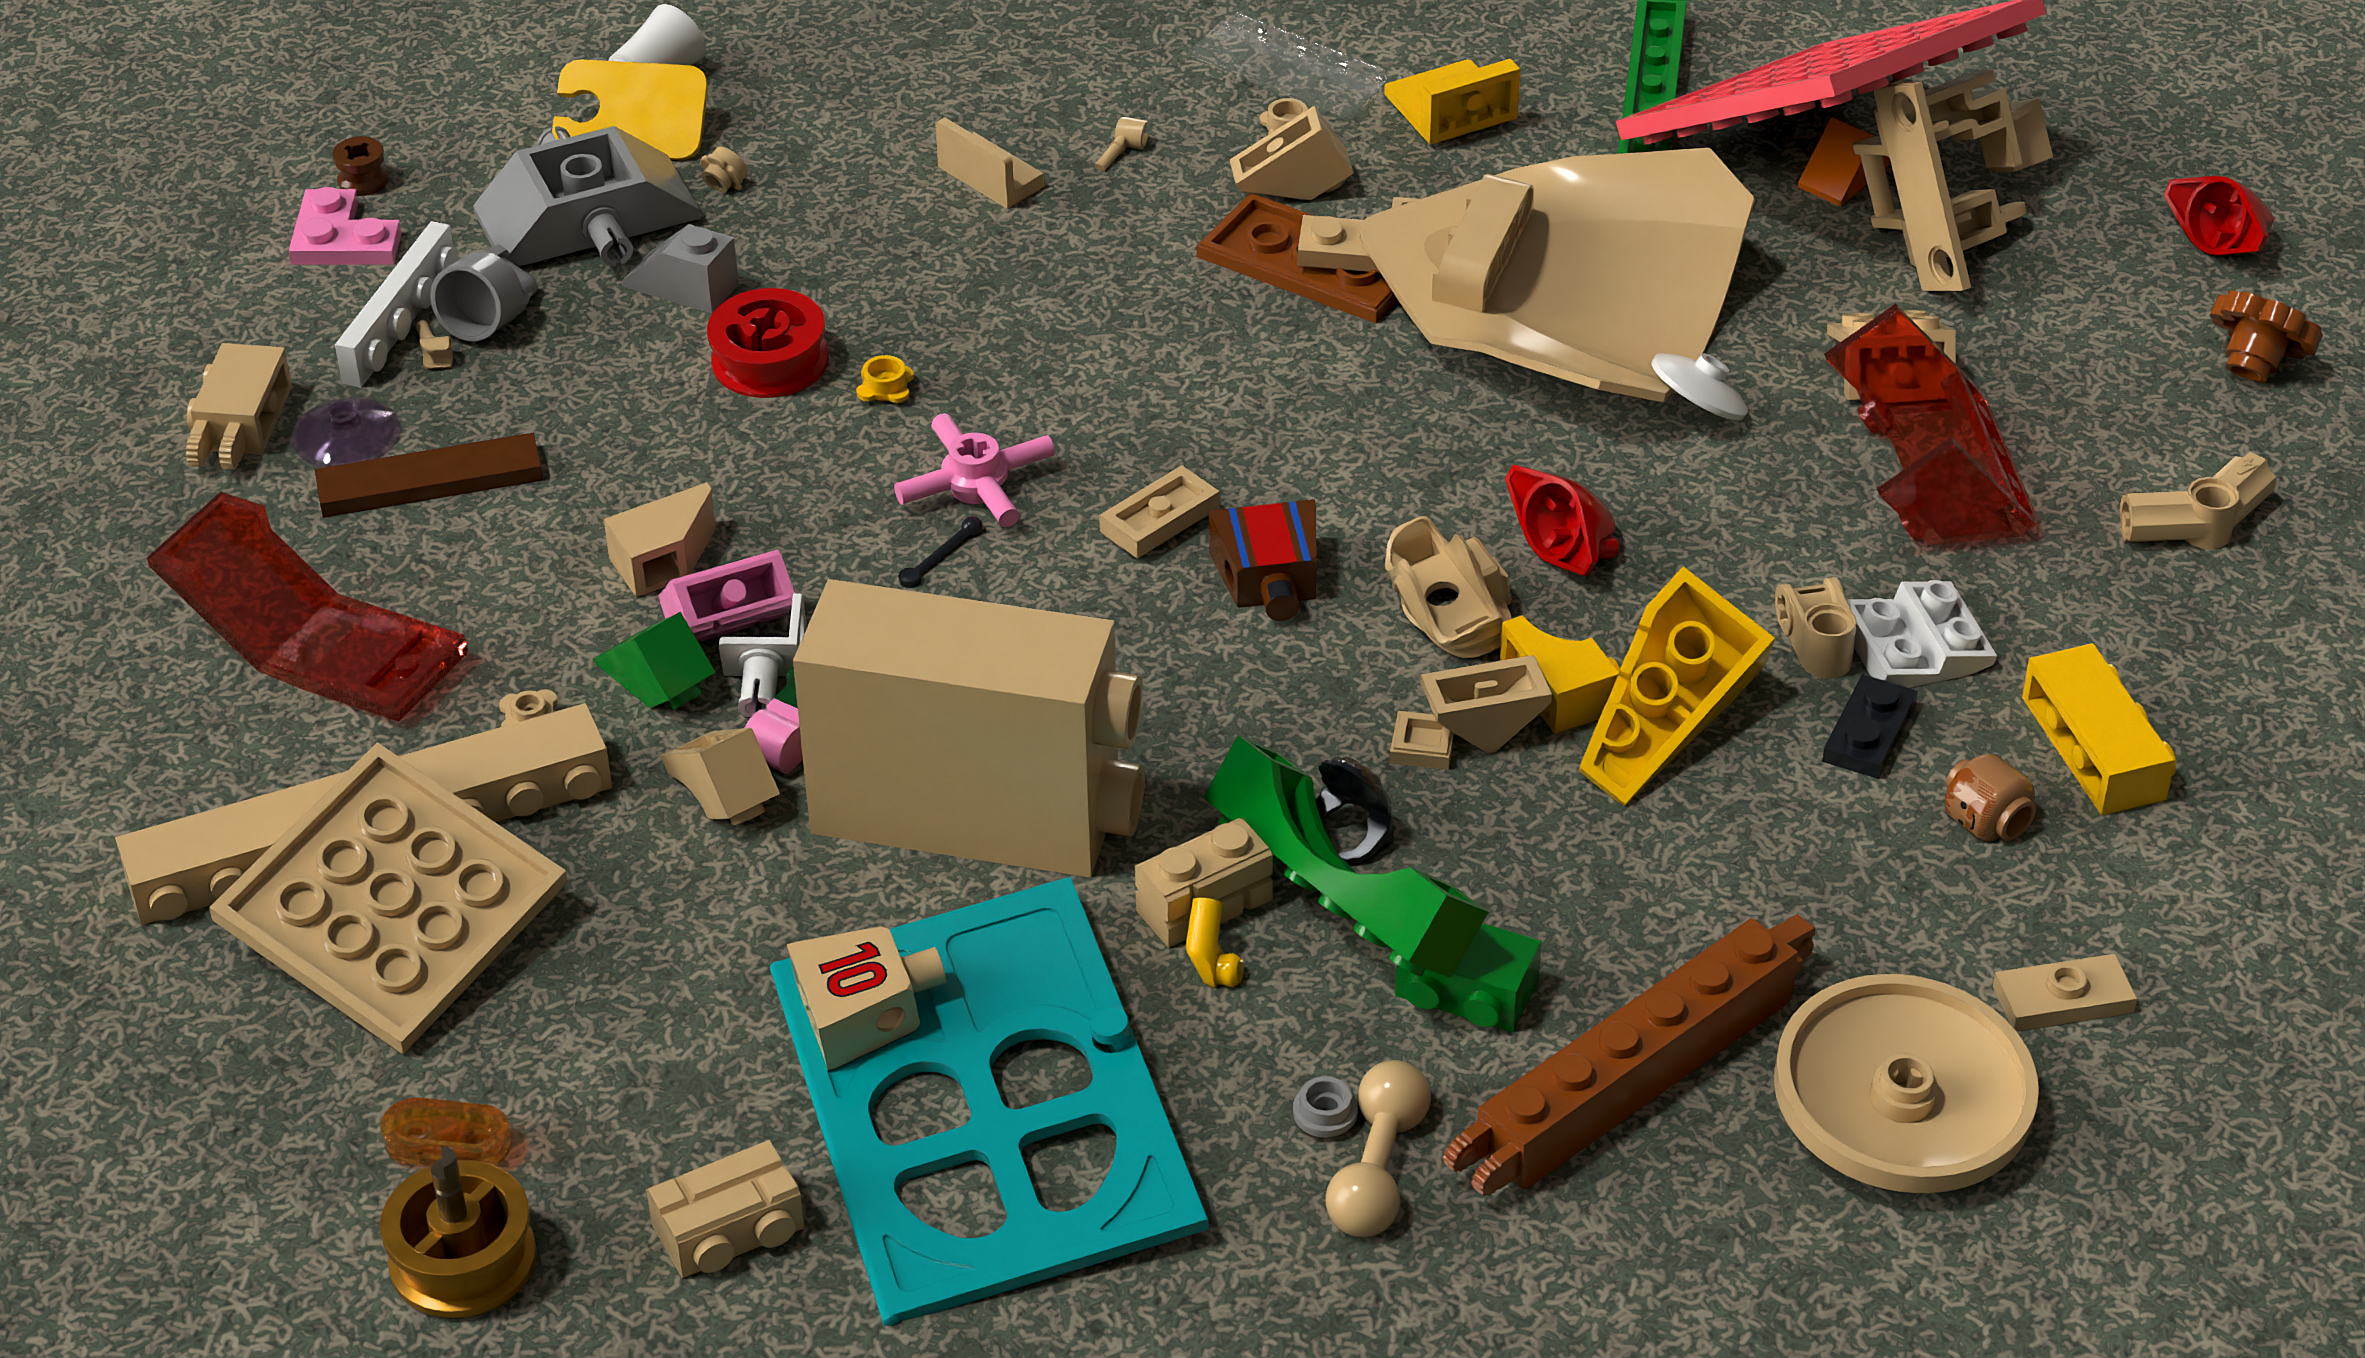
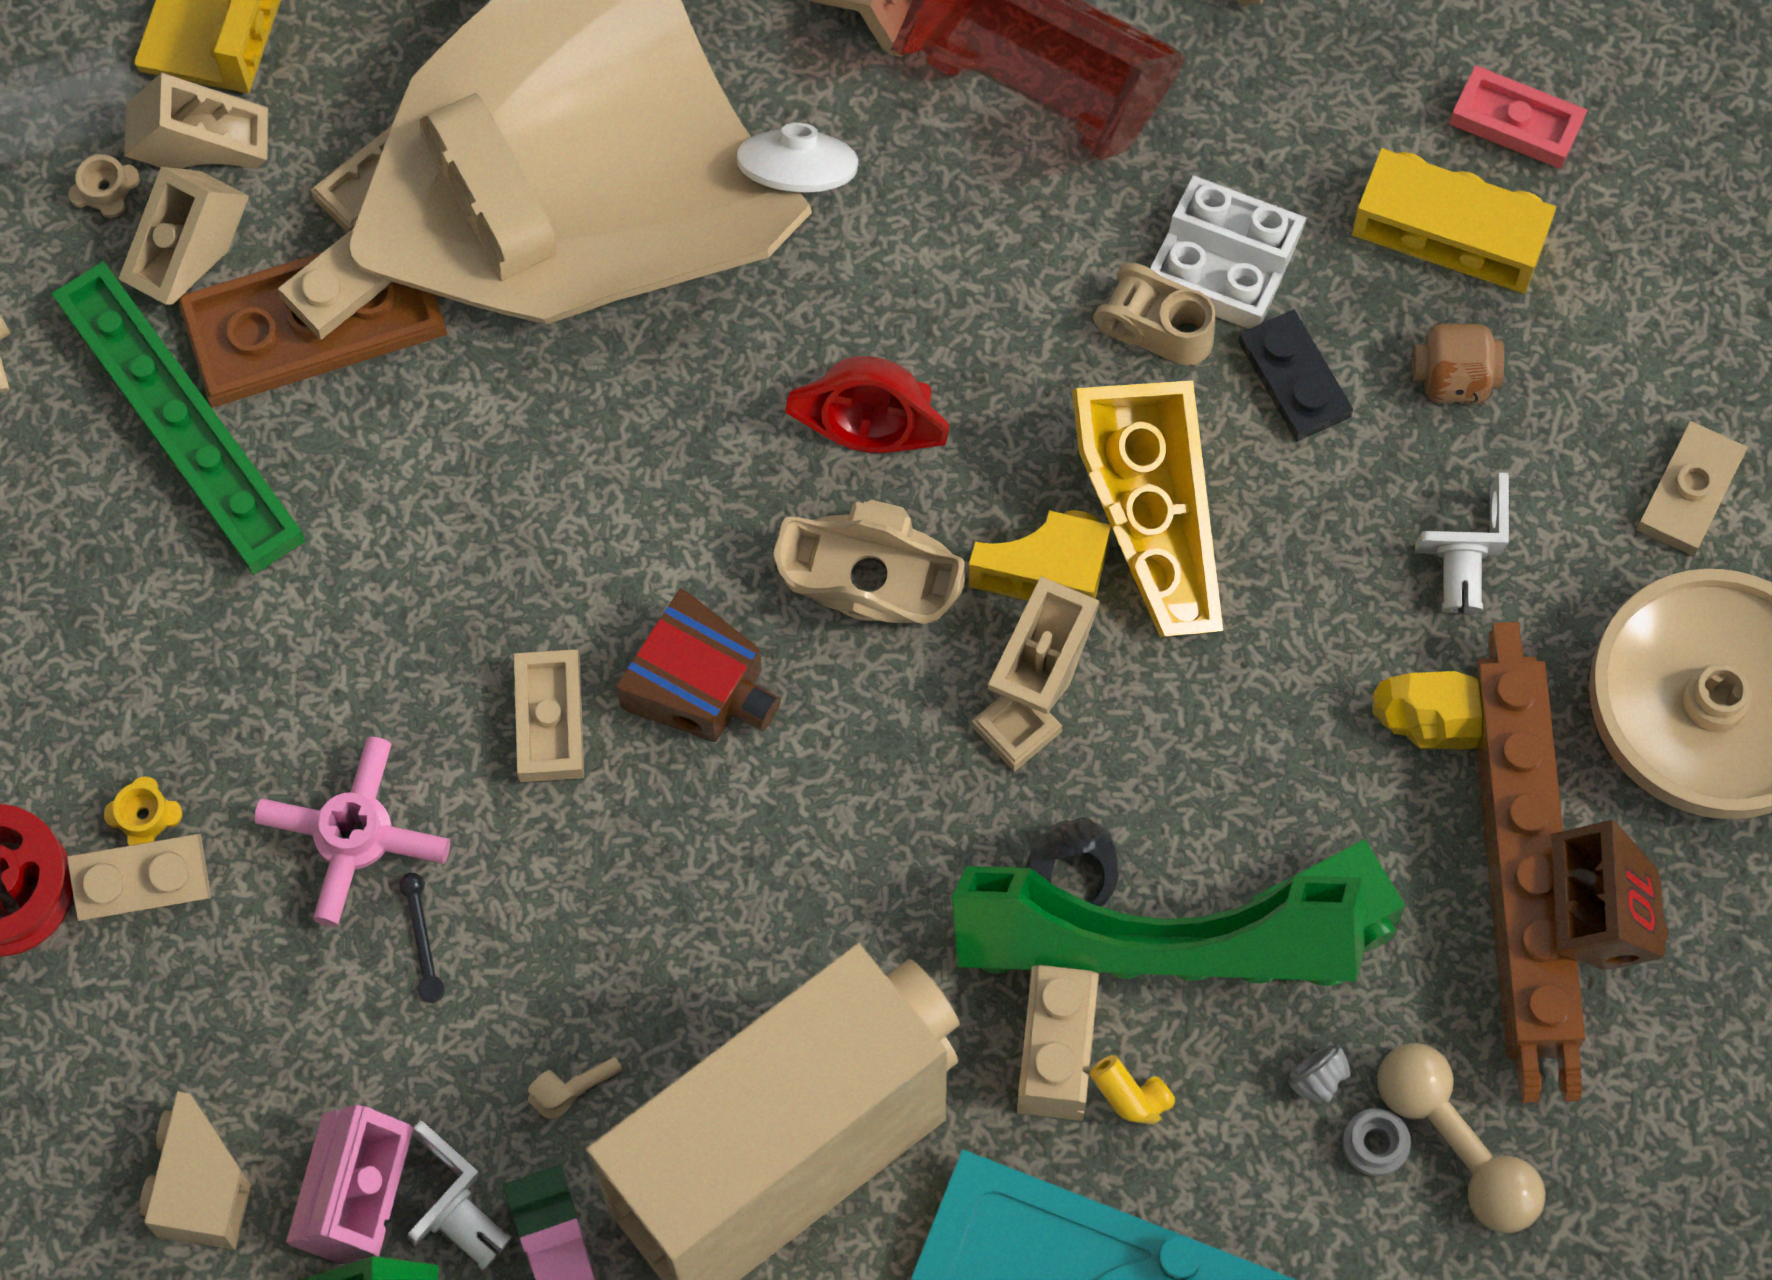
camera: 50 degrees left, 25 degrees up
(840, 403) = (139, 877): none -> tan plate
(1167, 241) = (179, 418): none -> green plate
(1341, 1042) = (1319, 1074): none -> light grey piece
(1373, 125) = (193, 125): none -> tan arch
(1647, 1095) = (1606, 898): none -> reddish brown torso
(1689, 925) = (1431, 709): none -> yellow rock
(1846, 883) = (1465, 552): none -> white bracket
(2231, 720) = (1518, 117): none -> coral plate

